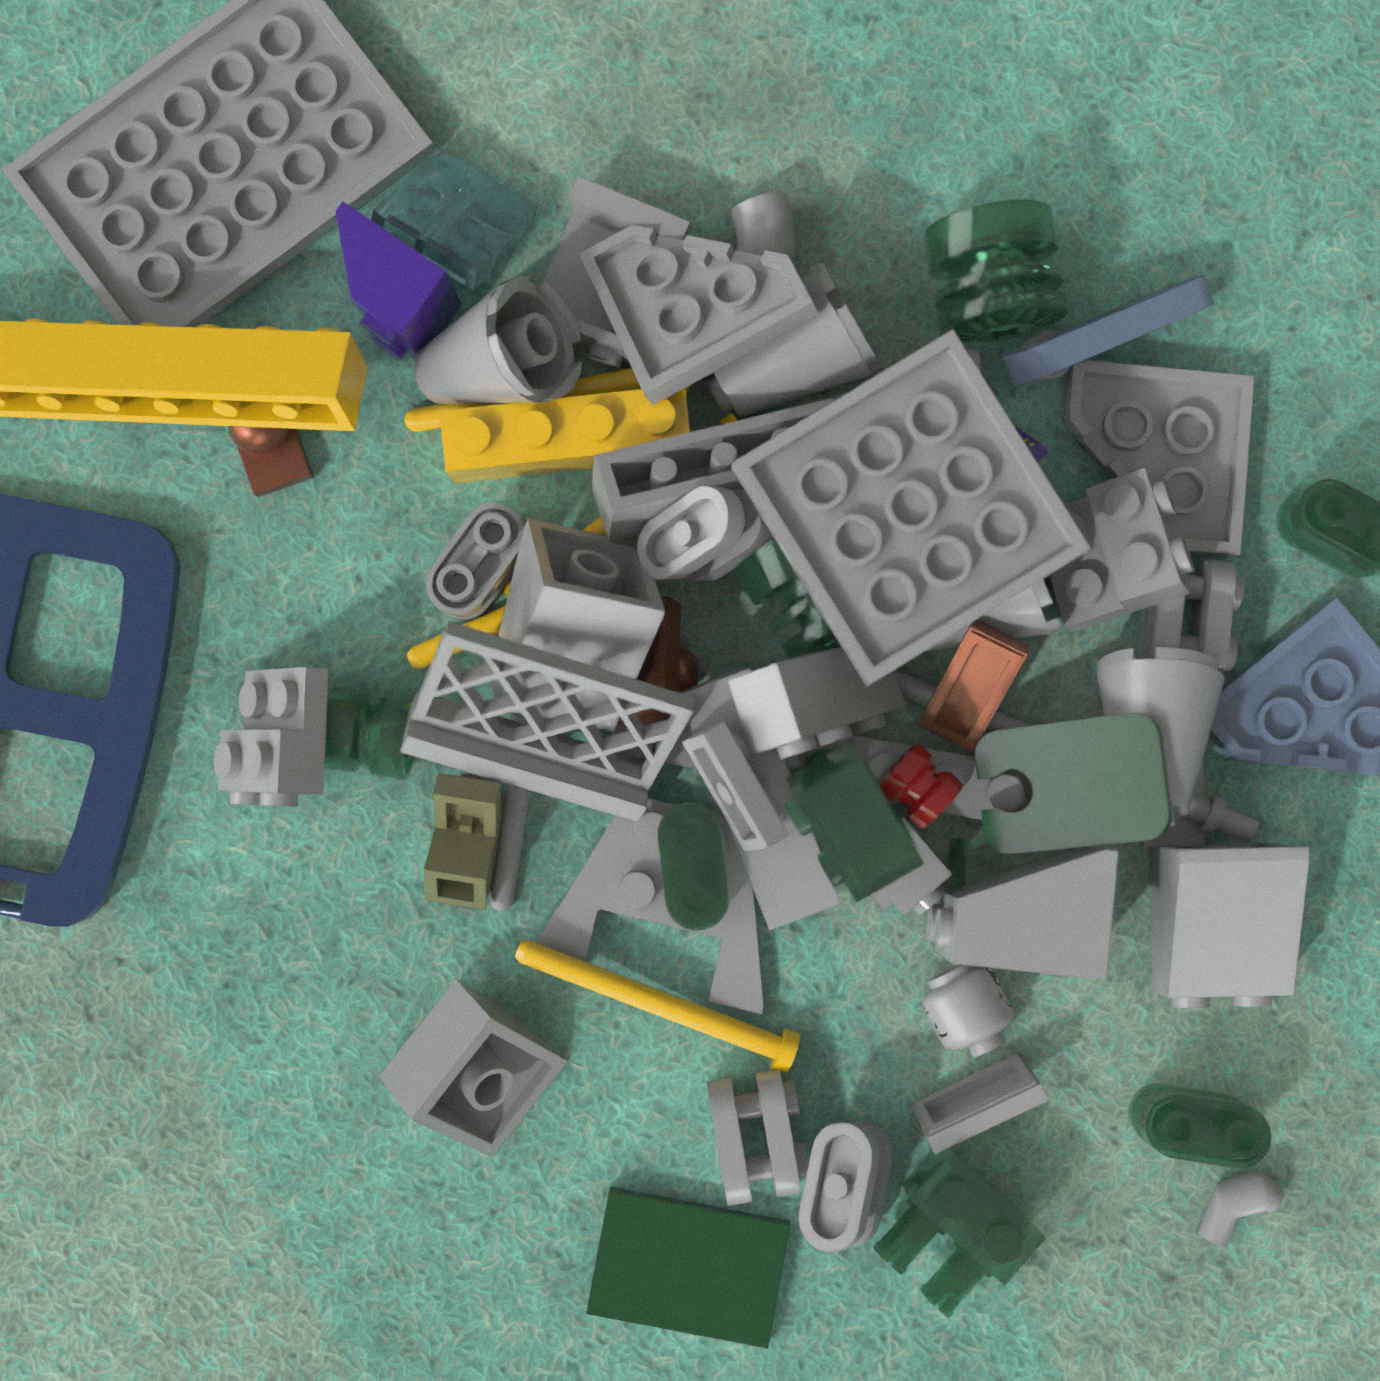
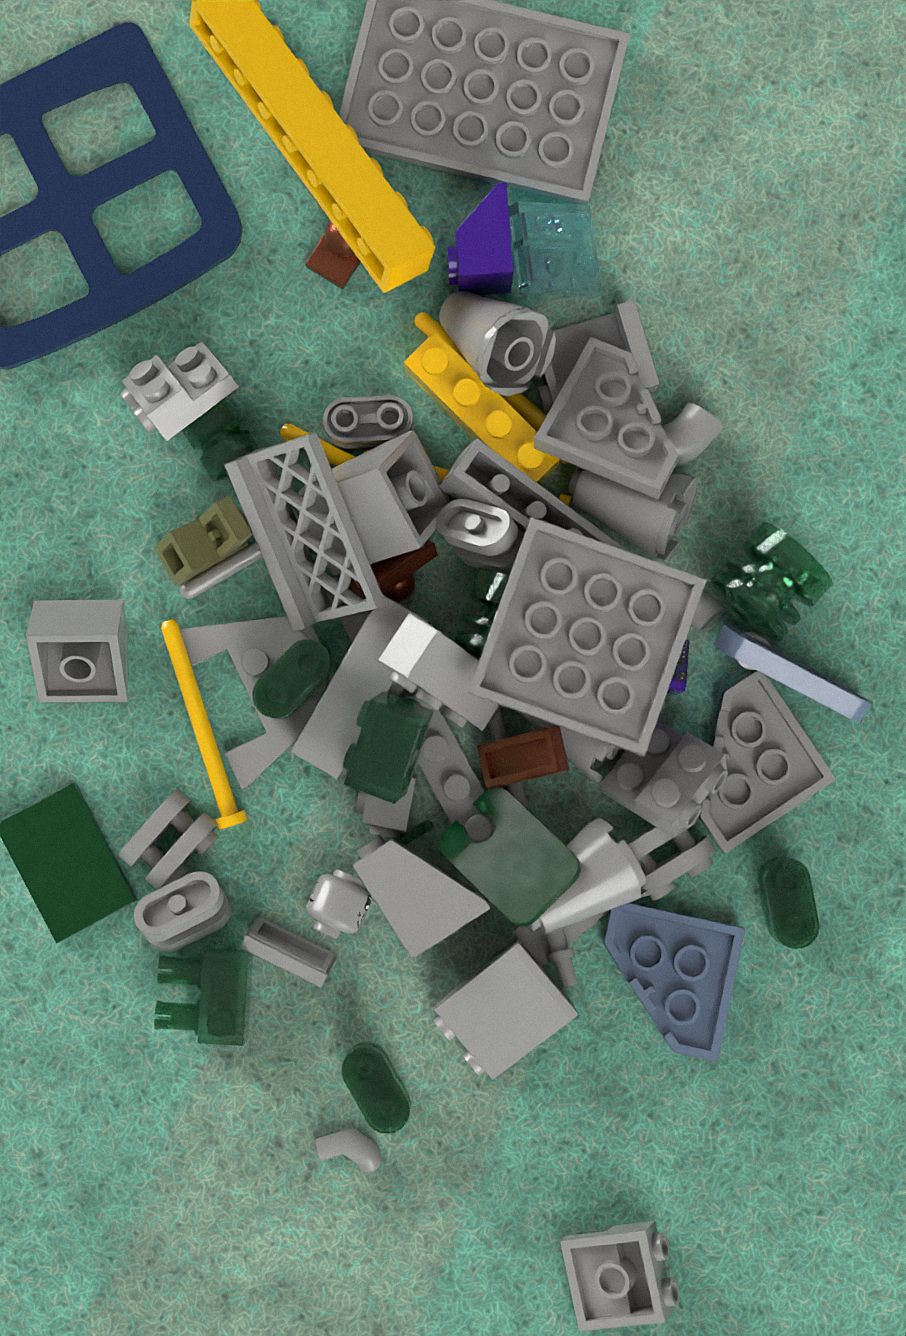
camera: 50 degrees right, 0 degrees up
(746, 805) = (348, 681): light grey plate -> none
(915, 782) = (441, 772): red wheel -> none

